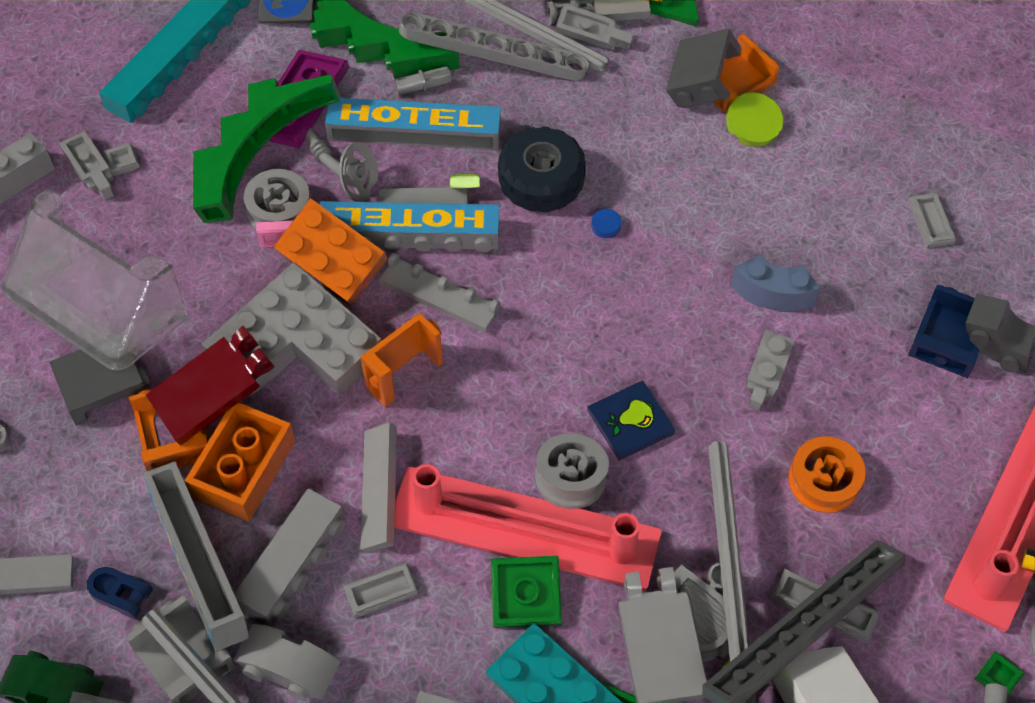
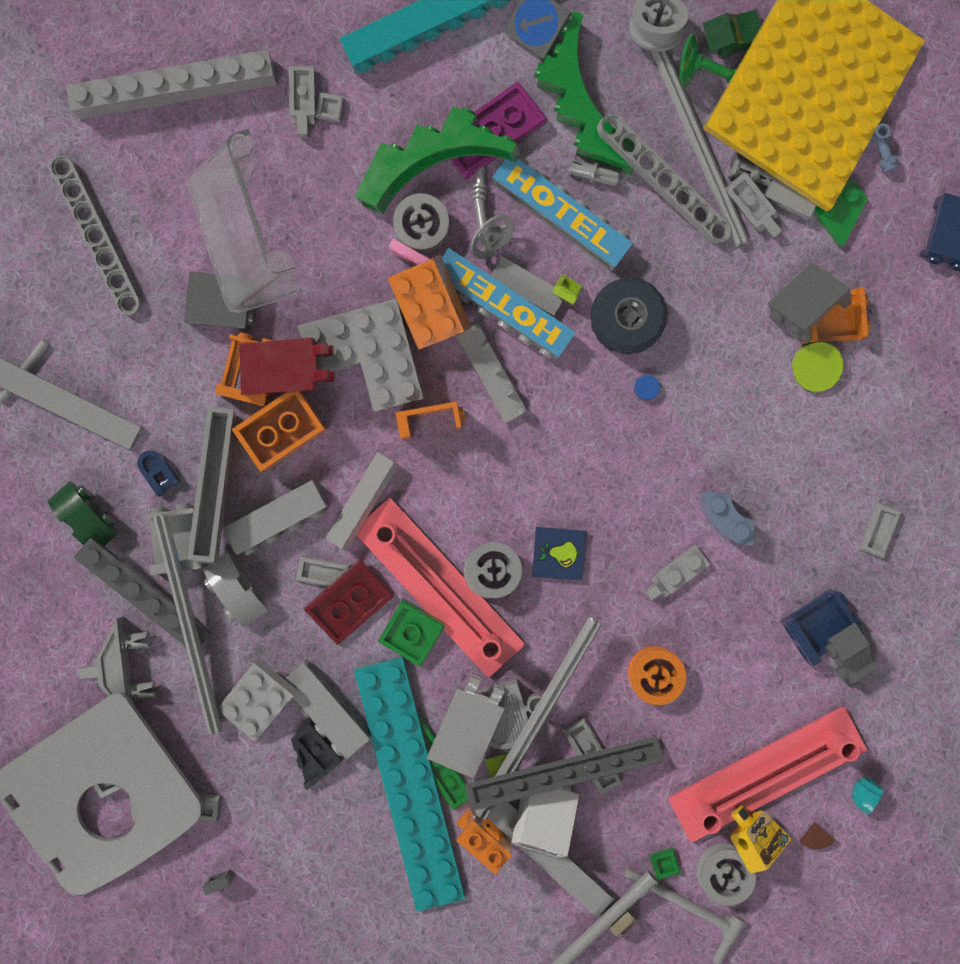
camera: 30 degrees right, 30 degrees up
(431, 602) = (348, 601): none -> dark red tile

